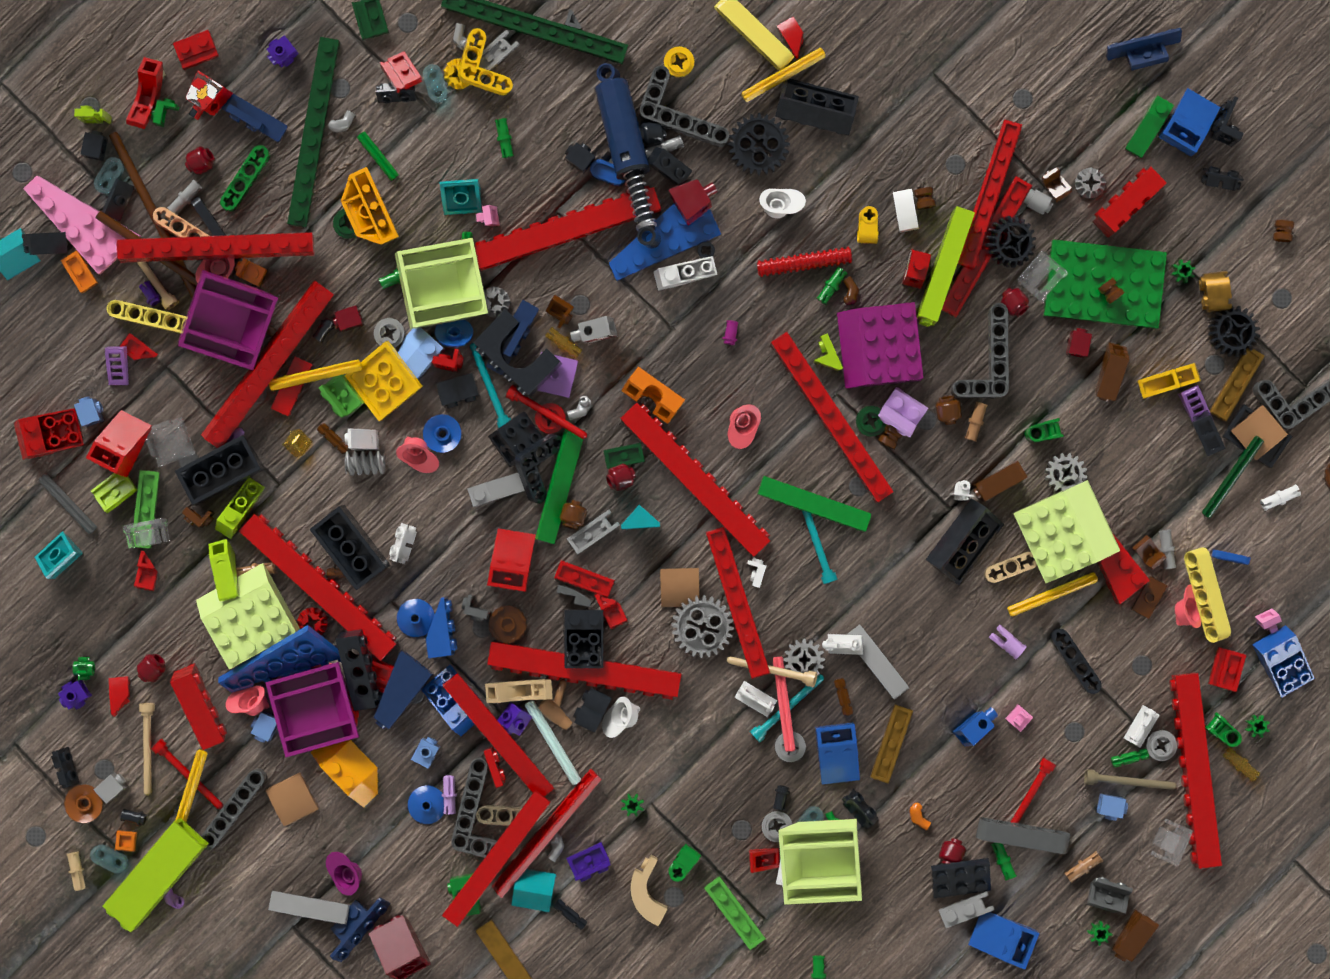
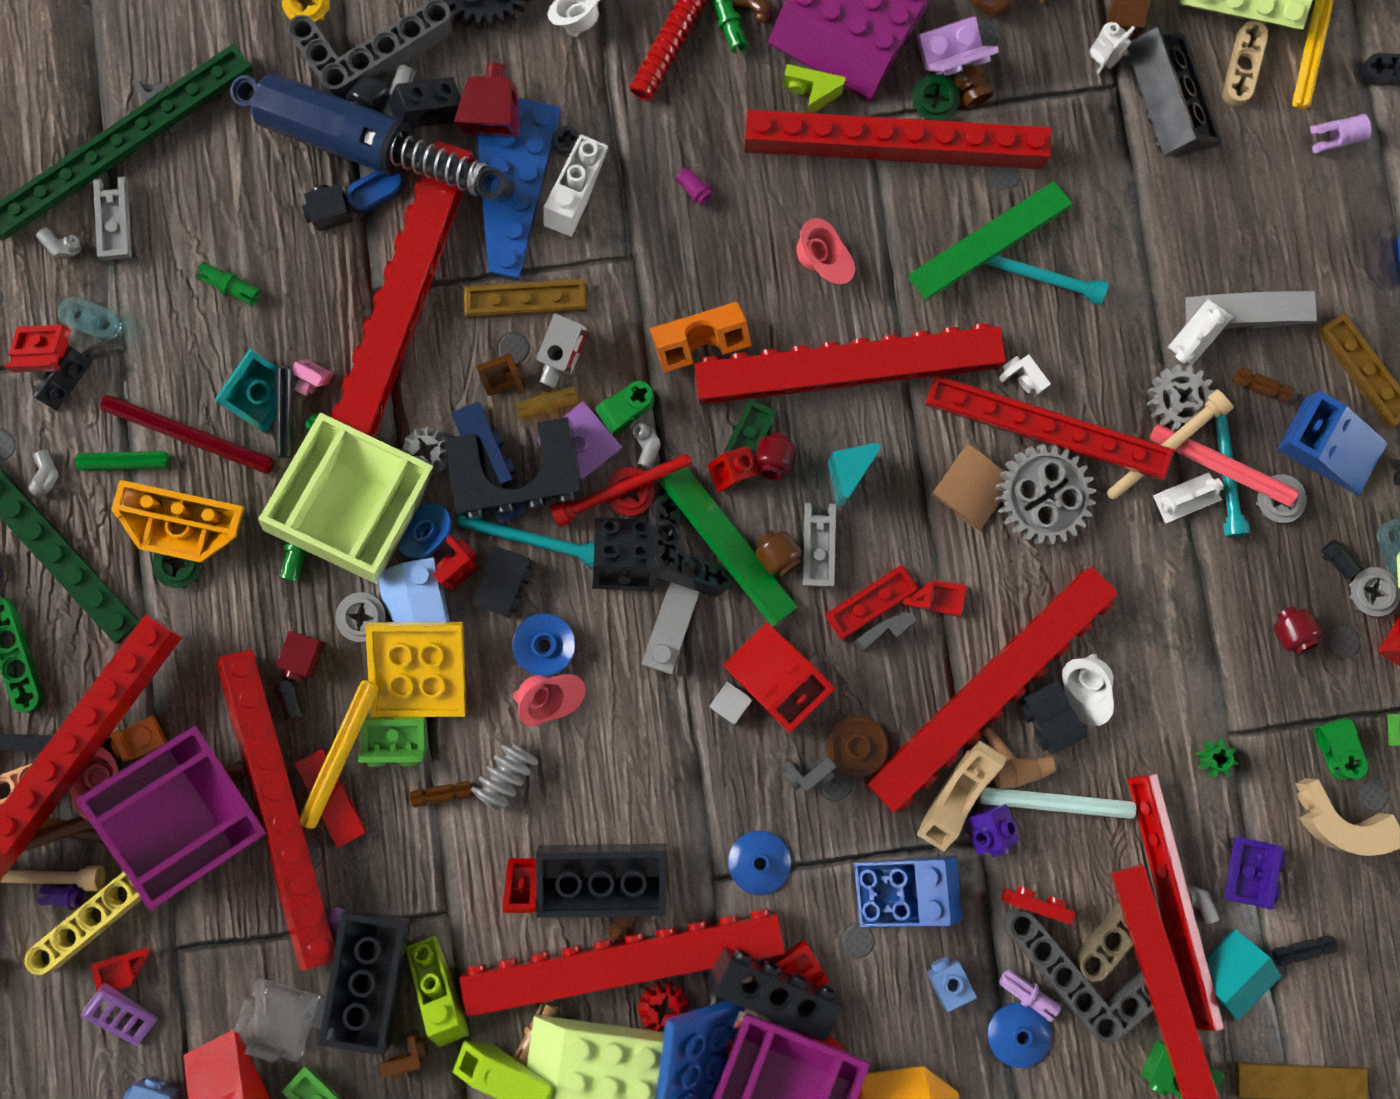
camera: 60 degrees left, 5 degrees down
(297, 443) = (410, 846): clear yellow slope -> none
(318, 510) = (520, 886): none -> red slope
(362, 439) = (470, 755): white slope -> none
(399, 549) = (654, 818): white hinge -> none
(402, 687) = (840, 947): dark blue slope -> none
(414, 177) = (187, 434): none -> dark red axle
(440, 637) = (814, 851): blue slope -> none
(450, 69) = (112, 273): yellow gear -> none
(461, 217) = (284, 412): none -> black axle
(473, 67) = (106, 250): yellow beam -> none
(482, 546) = (730, 703): none -> light grey slope
(497, 735) = (999, 869): red tile -> none
(583, 638) = (952, 659): black slope -> none
(587, 384) = (622, 410): none -> green piece
(599, 461) = (733, 468): none -> red bracket
(609, 291) = (525, 298): none -> pearl gold tile
(727, 800) = (1297, 630): none -> dark red head

